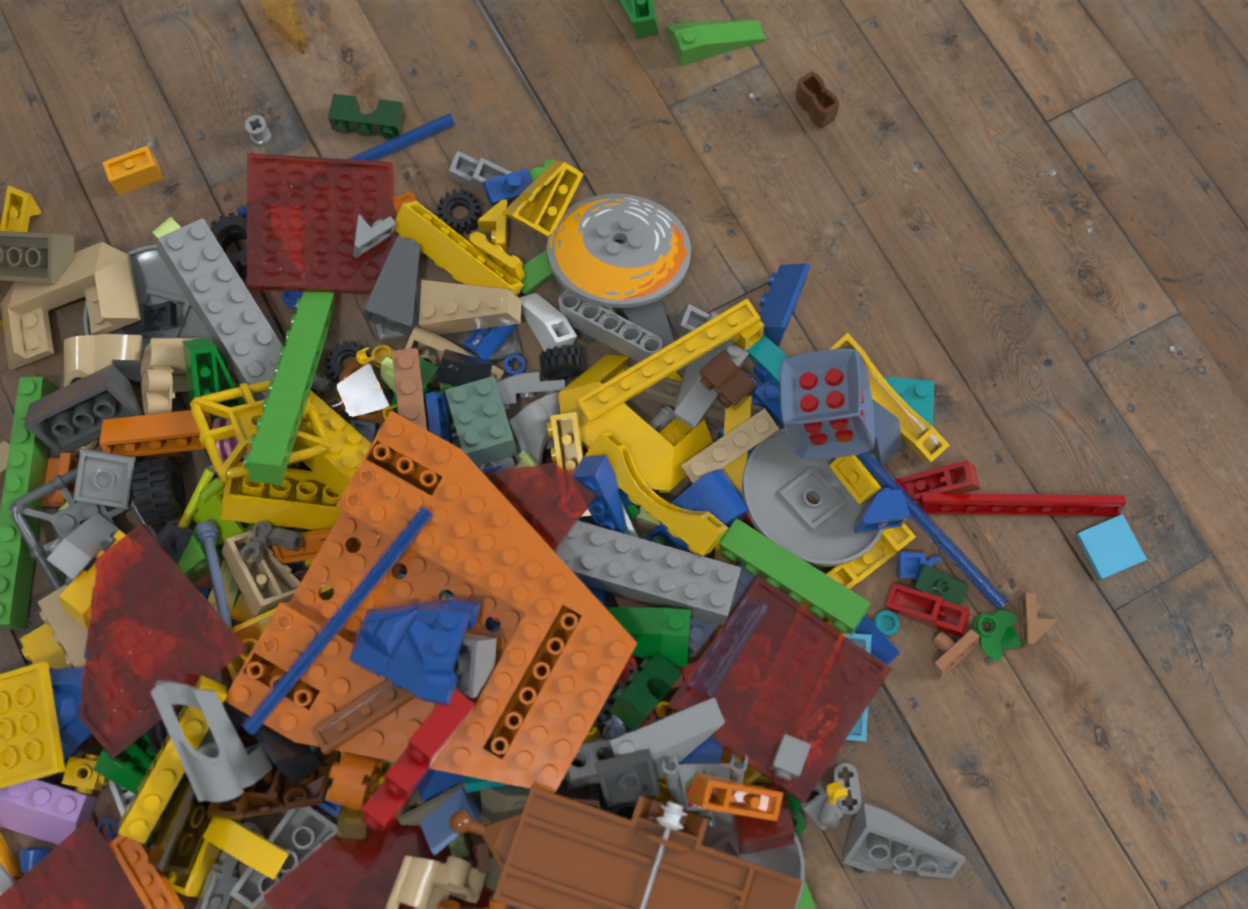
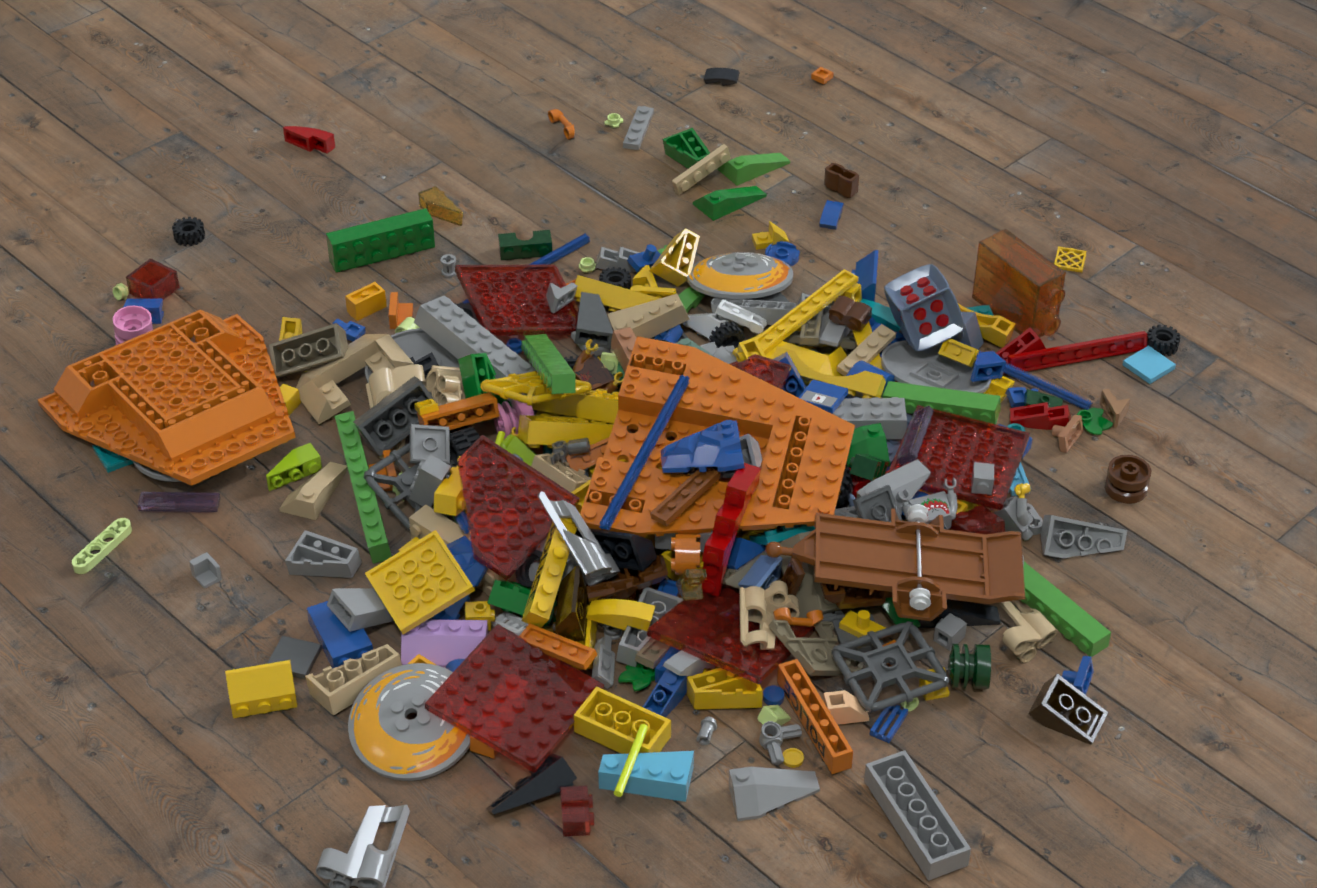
camera: 15 degrees left, 30 degrees down
(99, 216) = (352, 329): none -> blue plate
(114, 419) = (426, 406): none -> yellow tile
(171, 197) = (398, 311): none -> orange panel
(181, 68) = (380, 240): none -> green brick
(435, 165) = (587, 265): none -> yellowish green plate
(587, 336) = (741, 316): none -> white hinge
(629, 542) = (824, 395): none -> blue tile
(636, 36) = (701, 169): none -> tan plate
(651, 96) = (727, 201): none -> green wedge
(667, 395) = (811, 330): none -> dark tan plate
(689, 180) = (764, 239): none -> yellow slope
(695, 211) = (784, 251): none -> blue tile
(734, 797) = (950, 498): orange slope -> none
(784, 155) = (831, 214): none -> blue slope
(979, 383) = (1019, 284): none -> clear orange brick
(1000, 777) = (1128, 479): none -> reddish brown wheel
(1068, 332) = (1070, 251): none -> yellow window
(1159, 505) = (1163, 339): none -> black tyre

